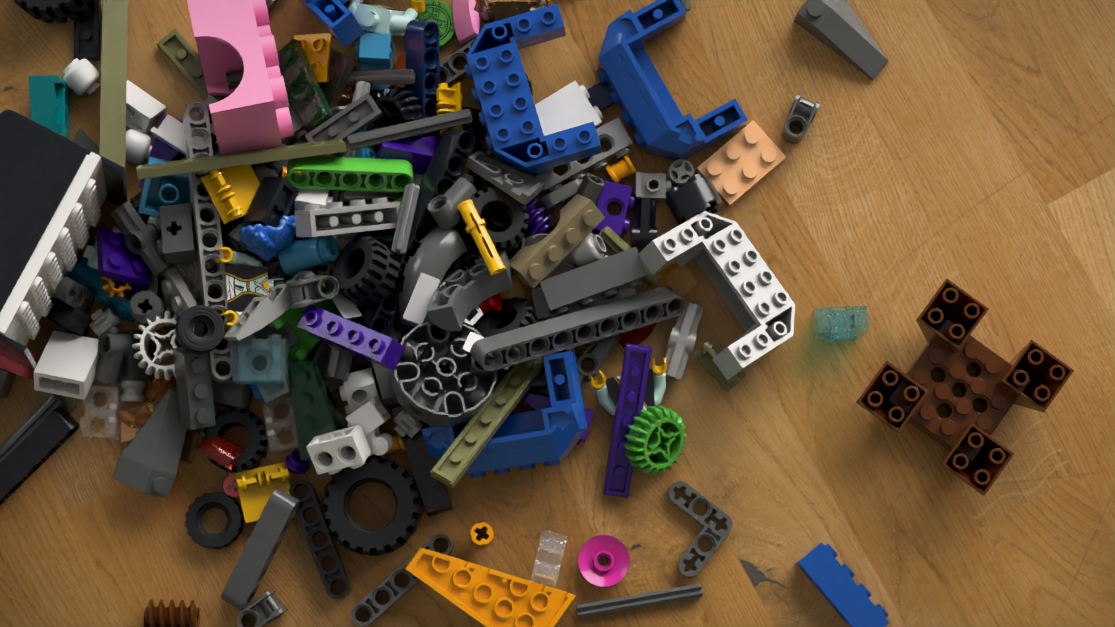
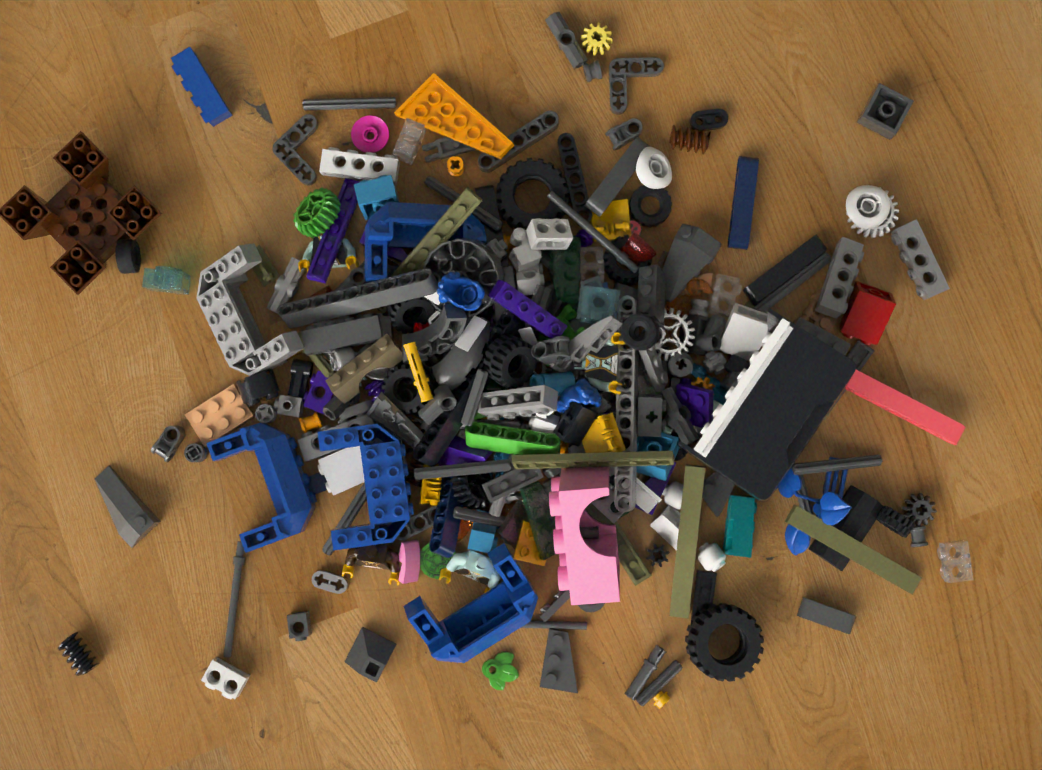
camera: 165 degrees left, 5 degrees up
(90, 542) = (743, 202): none -> dark blue beam
(149, 62) = (658, 560): none -> black gear
(214, 567) = (653, 168): none -> white hat
(242, 437) = (621, 257): none -> dark grey bar
(439, 345) = (460, 291): none -> blue hair
(468, 486) = (452, 195): none -> dark grey axle
(499, 557) = (447, 148): none -> dark grey hinge
(553, 55) = (348, 517): none -> dark grey axle
(578, 473) = (375, 194): none -> dark azure brick
(649, 507) = (329, 166): none -> white brick
(762, 115) = (200, 452): none -> dark grey wheel
(896, 346) = (128, 256): none -> black tyre

